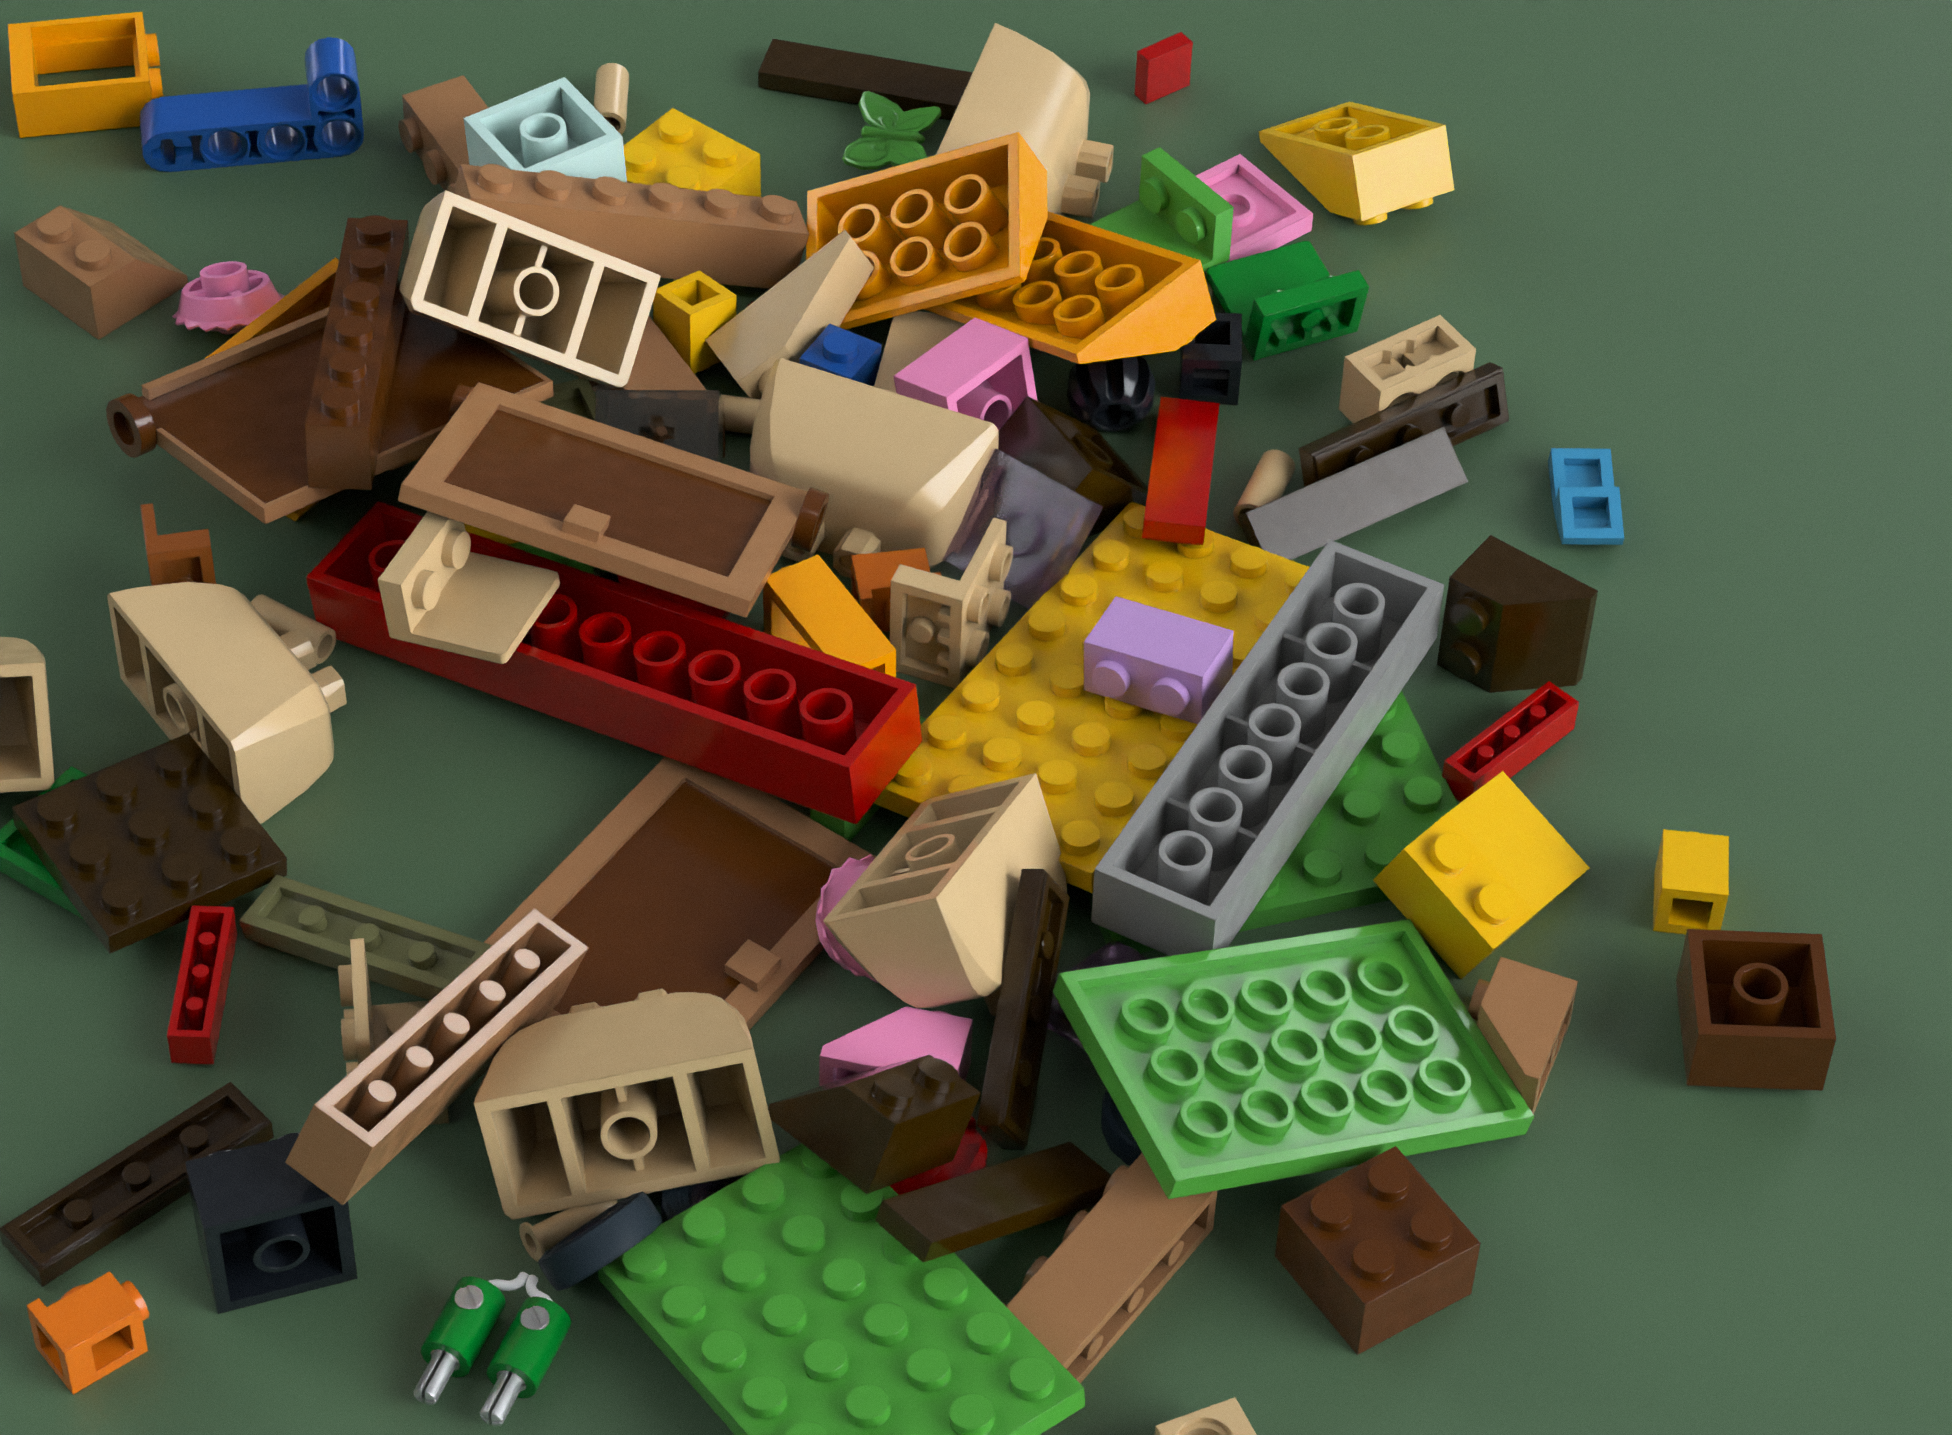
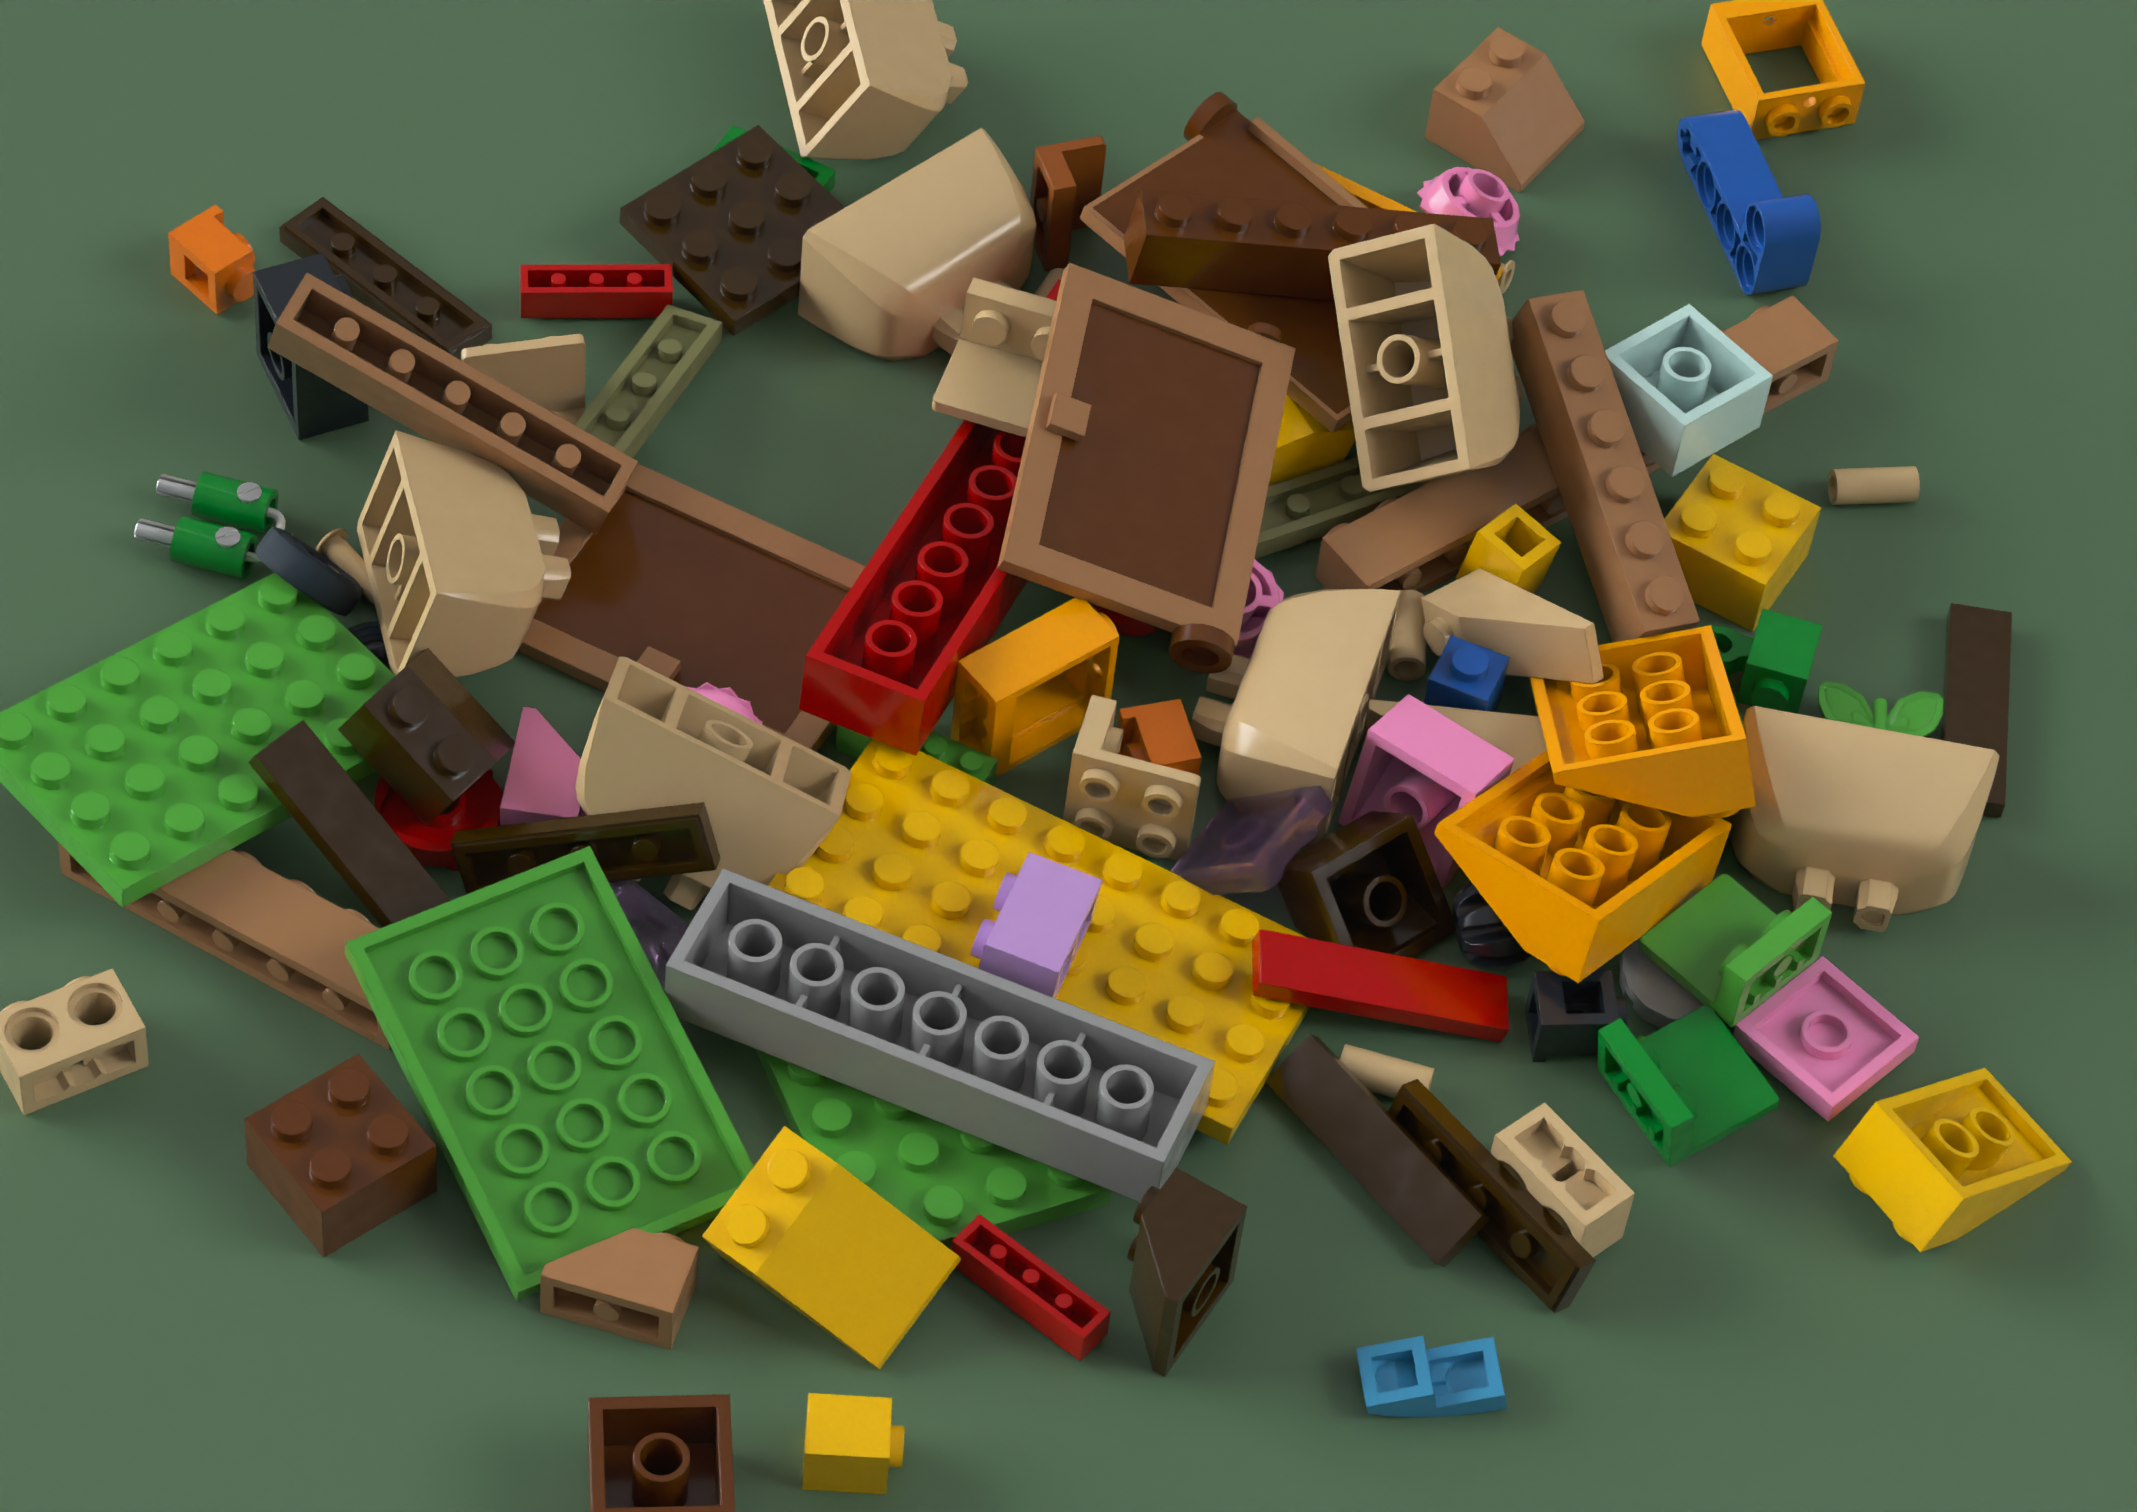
camera: 80 degrees right, 5 degrees up
(688, 415) = (1307, 525): clear smoke brick -> none
(815, 164) = (1773, 661): none -> green brick
(1163, 68) = (2059, 965): red tile -> none

